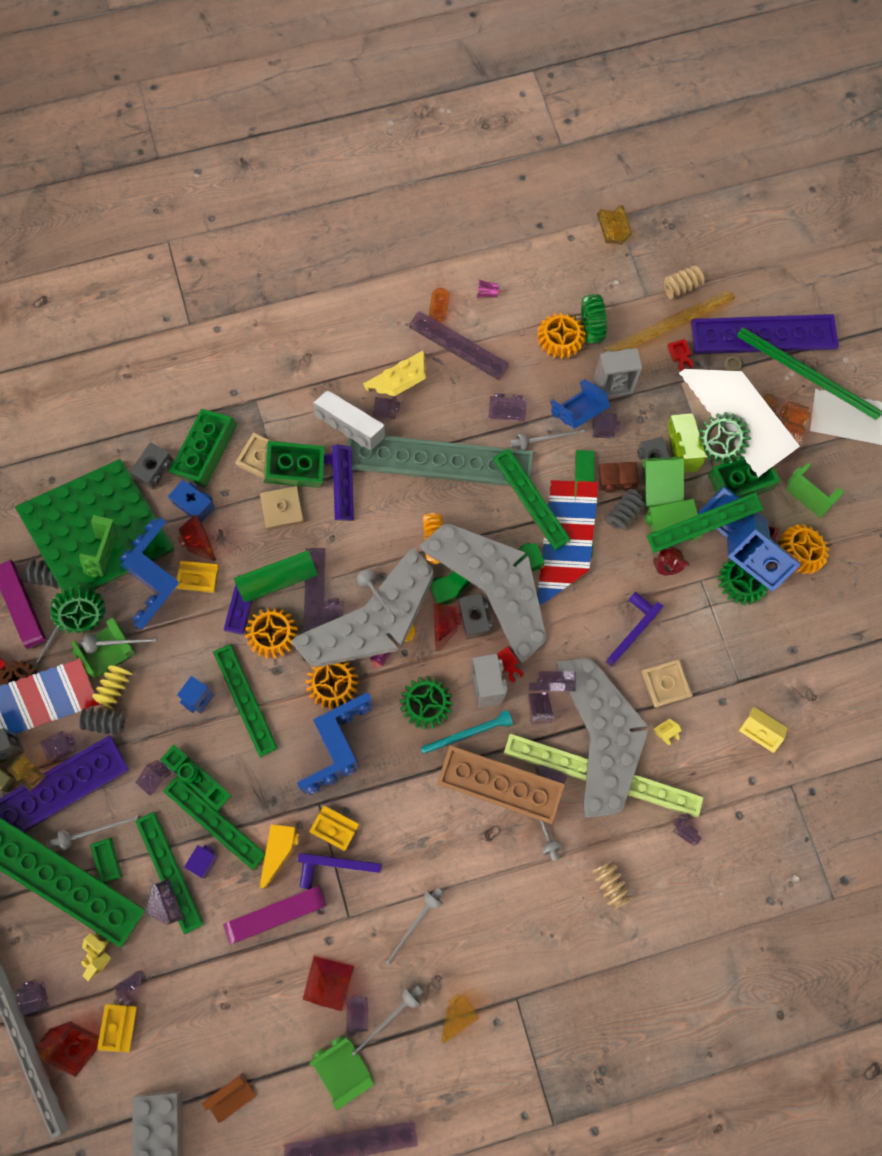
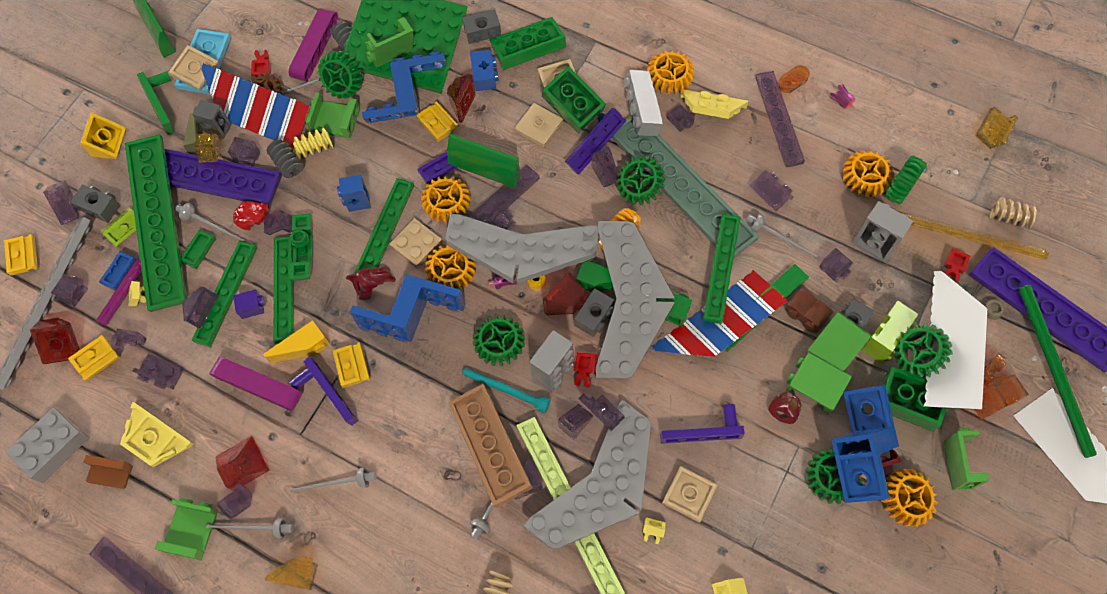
camera: 50 degrees right, 5 degrees down
(16, 906) = (120, 227): none -> lime panel
(57, 942) = (117, 270): none -> blue plate
(78, 955) = (120, 293): none -> magenta axle
(92, 643) = (328, 105): light grey sword -> none
(94, 964) = (122, 305): light yellow tile -> none
(123, 791) = (249, 214): none -> red hair
(184, 983) = (159, 371): none -> clear purple bracket
(236, 1037) = (151, 438): none -> light yellow wing
(280, 750) = (369, 279): none -> dark red hair
(282, 688) = (415, 243): none -> tan plate
(338, 368) = (671, 67): none -> light orange gear
(366, 579) = (545, 221): light grey sword -> none
(370, 497) = (605, 167): none -> clear purple slope
(419, 496) = (626, 179): none -> green gear
(581, 406) = (829, 235): blue panel -> none
(625, 510) = (788, 339): dark grey piece -> none
(704, 522) = (841, 400): green tile -> none

